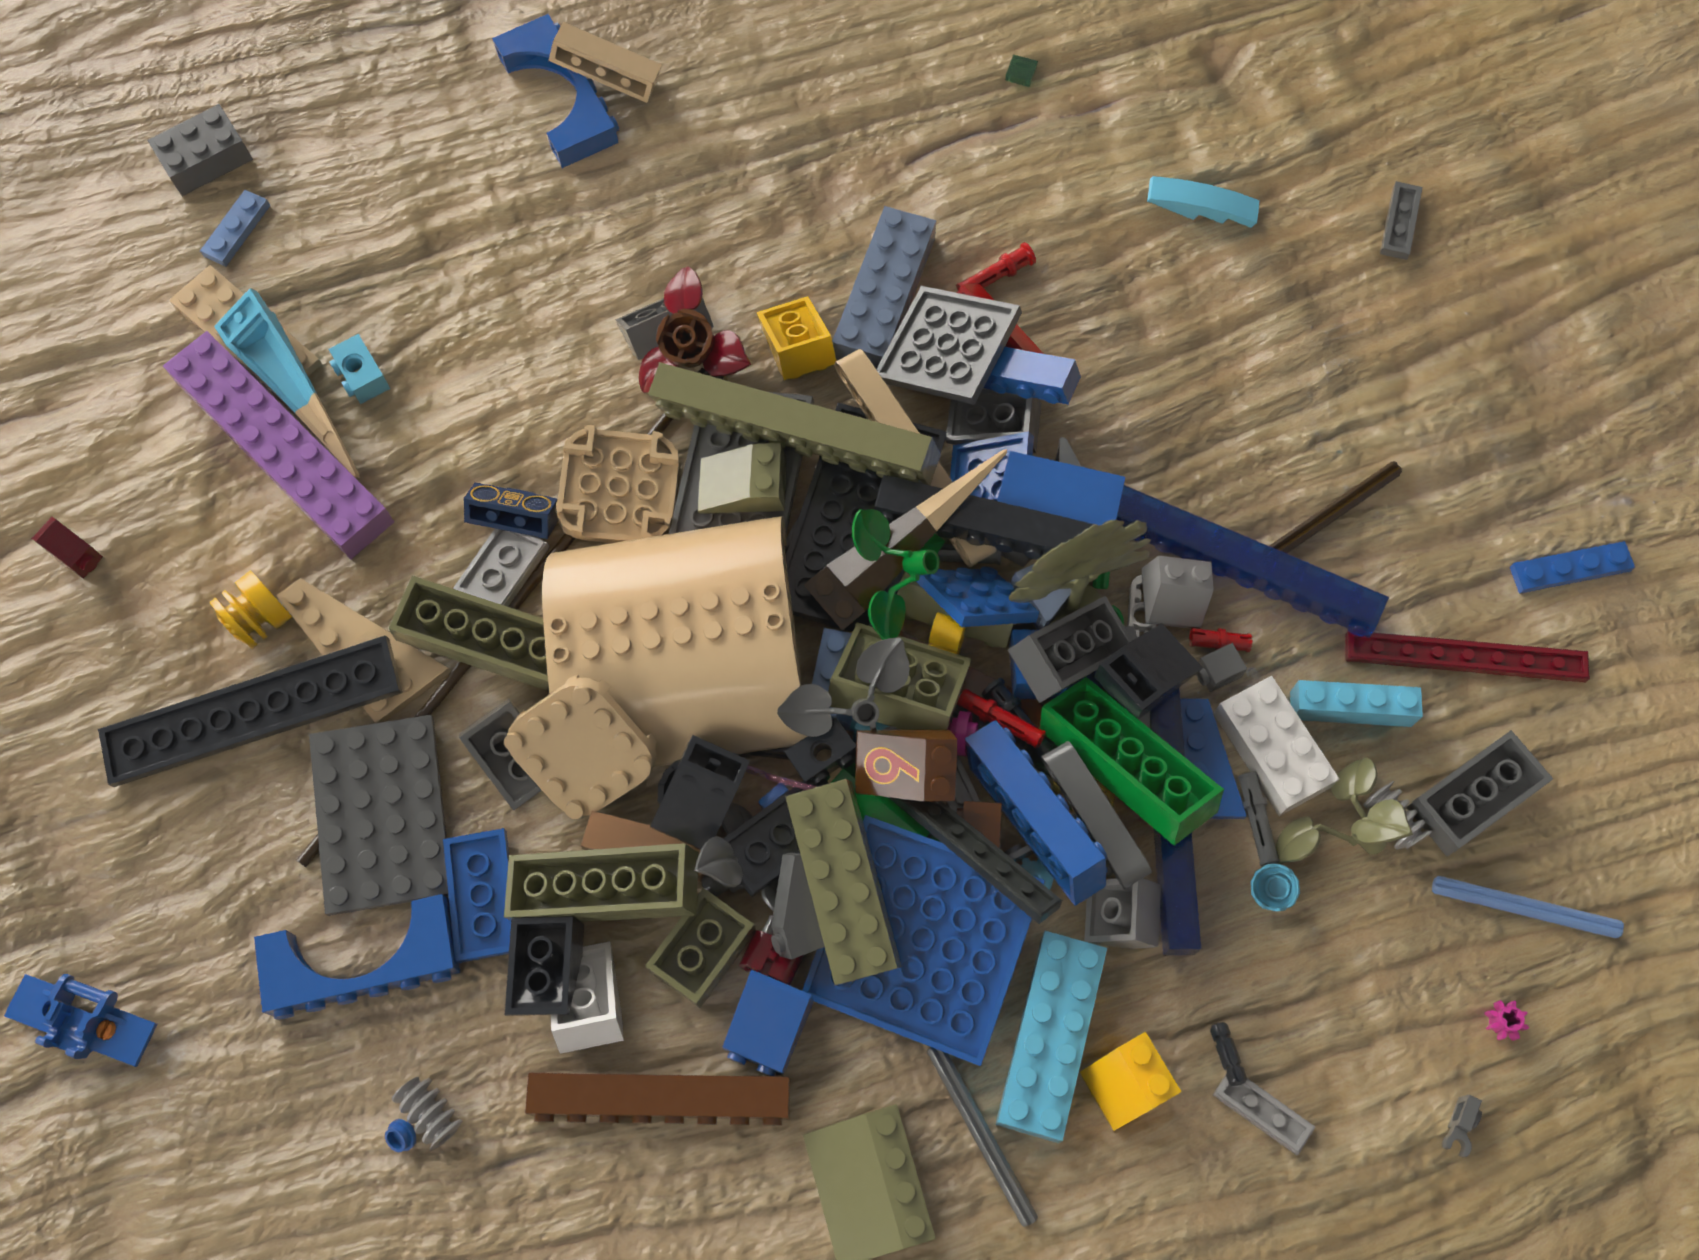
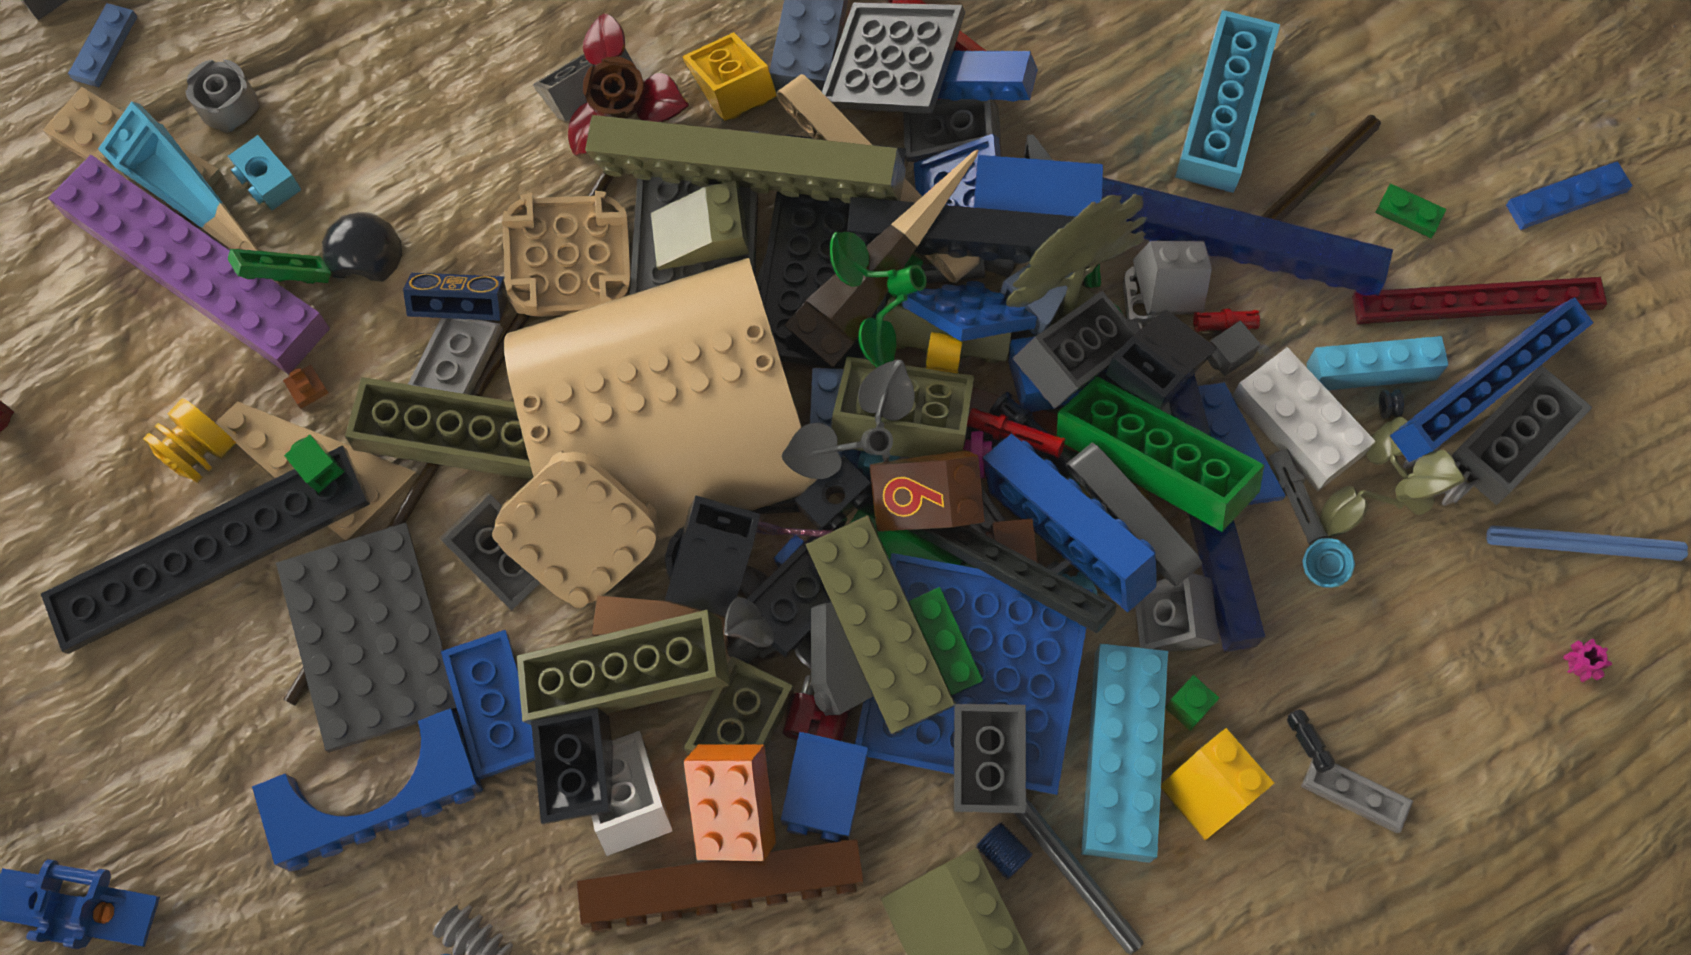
camera: 10 degrees left, 0 degrees up
(332, 290) = (221, 94): none -> light grey brick
(356, 459) = (278, 266): none -> green plate
(356, 648) = (313, 463): none -> green brick
(363, 572) = (305, 386): none -> dark orange tile
(435, 450) = (361, 246): none -> black cylinder
(678, 1024) = (730, 802): none -> orange brick
(901, 906) = (946, 641): none -> green plate
(921, 1023) = (990, 758): none -> dark grey slope
(923, 1109) = (1004, 850): none -> dark blue piece
(1122, 999) = (1191, 702): none -> green brick
(1258, 429) = (1227, 101): none -> medium azure brick
(1363, 744) = (1391, 403): none -> black bush
(1416, 559) = (1410, 210): none -> green plate
(1460, 737) = (1491, 380): none -> blue brick
(1464, 1119) = (1562, 767): dark grey plate -> none

